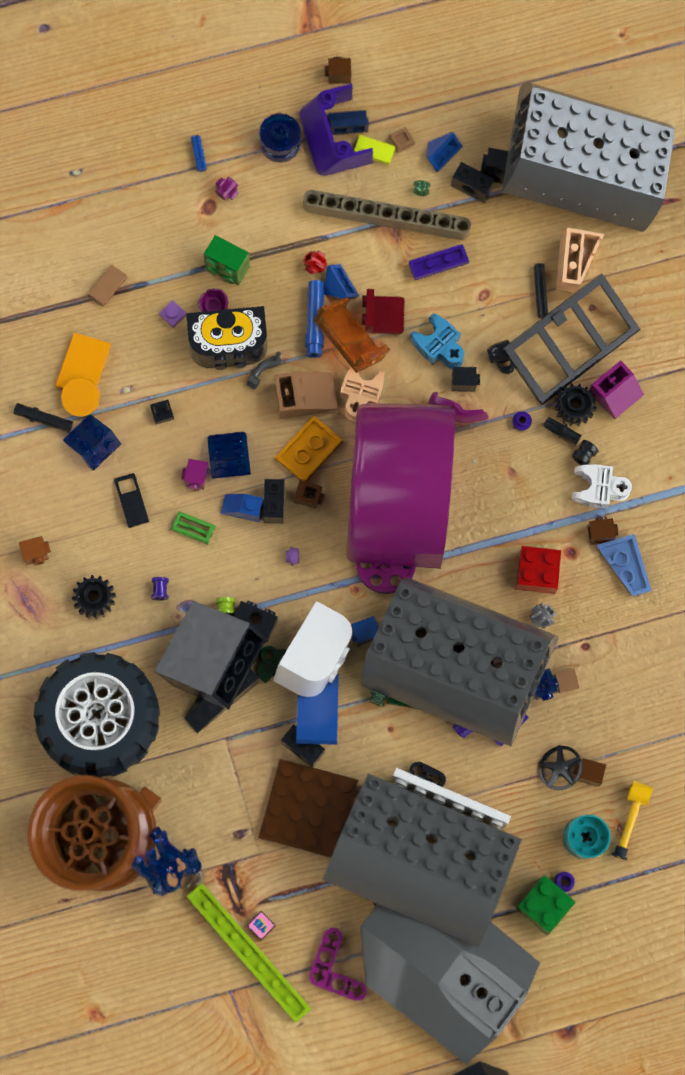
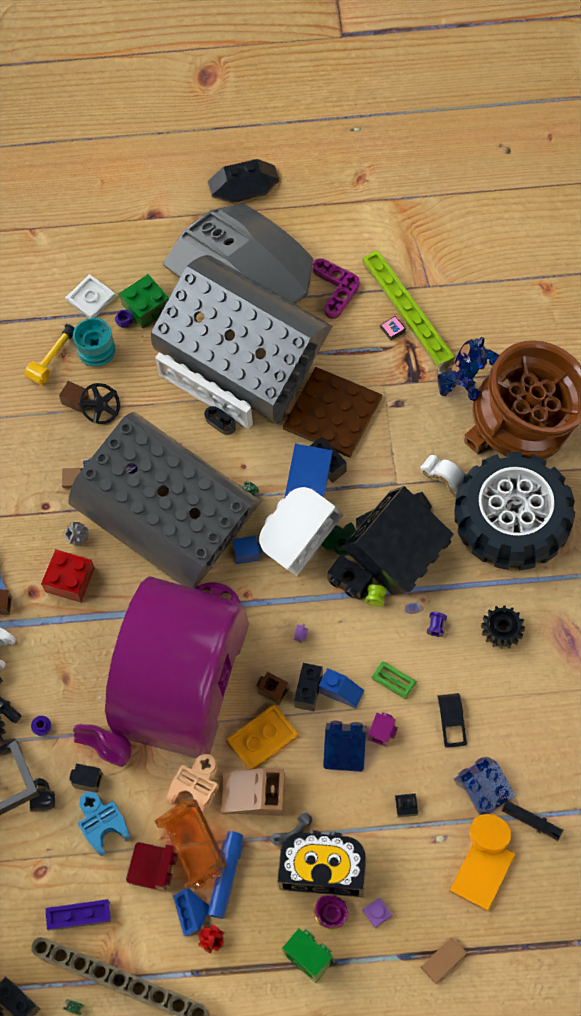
camera: 160 degrees left, 10 degrees down
(34, 551) = (556, 679): dark orange brick -> none
(177, 752) = (443, 471): none -> white animal
(610, 904) = (90, 297): none -> white tile

